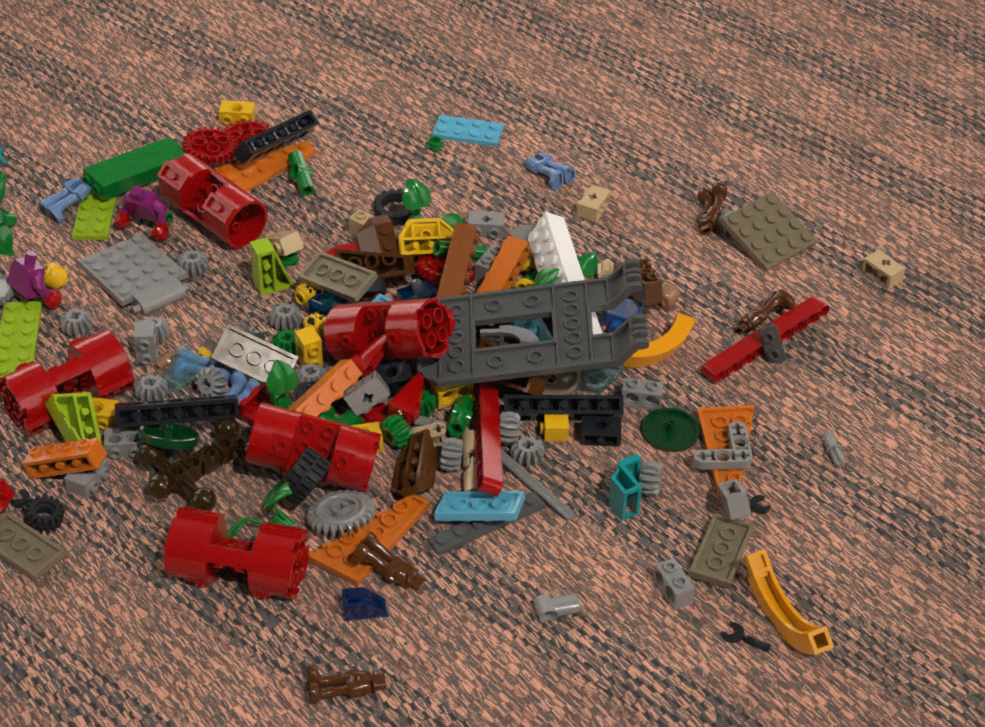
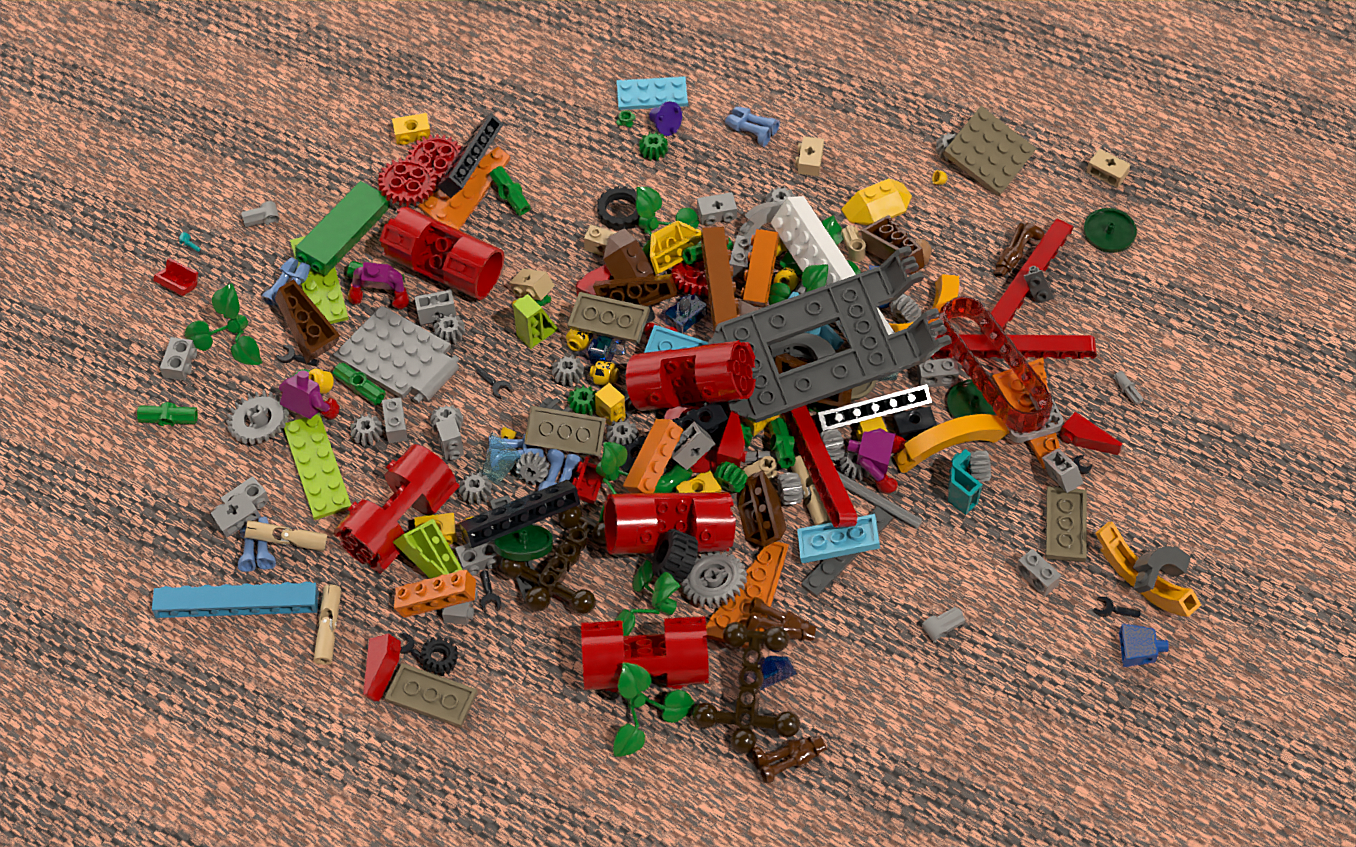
camera: 15 degrees left, 15 degrees up
(42, 254) = (291, 356): none -> black piece
(64, 227) = (307, 323): none -> reddish brown wedge
(77, 148) = (265, 214): none -> light grey piece
(88, 286) = (366, 389): none -> green piece
(105, 316) = (394, 420): none -> light grey brick
(120, 478) = (489, 597): none -> black piece
(163, 361) = (475, 448): nougat arm -> none
(186, 239) = (434, 306): none -> light grey brick
(208, 569) = (630, 685): none -> green plant
(213, 315) = (496, 385): none -> black piece
(350, 648) = (744, 739): none -> dark brown piece
(371, 356) = (683, 406): red piece -> none
(449, 167) = (653, 146): none -> green gear
(471, 147) = (666, 118): none -> dark purple piece
(547, 441) = (875, 454): none -> magenta torso
(631, 440) = (953, 432): none -> light orange arch
(650, 245) = (876, 202): none -> yellow wedge
(703, 443) = (1013, 418): none -> clear red piece
(712, 244) = (941, 176): none -> yellow hinge
(713, 200) = (925, 145): reddish brown piece -> none
(730, 390) = (1030, 346): none -> red beam
(757, 675) = (1140, 645): none -> blue torso
(775, 479) = (1087, 435): none -> red slope
(811, 598) = (1167, 558): none -> dark grey arch
(866, 319) = (1110, 230): none -> dark green piece

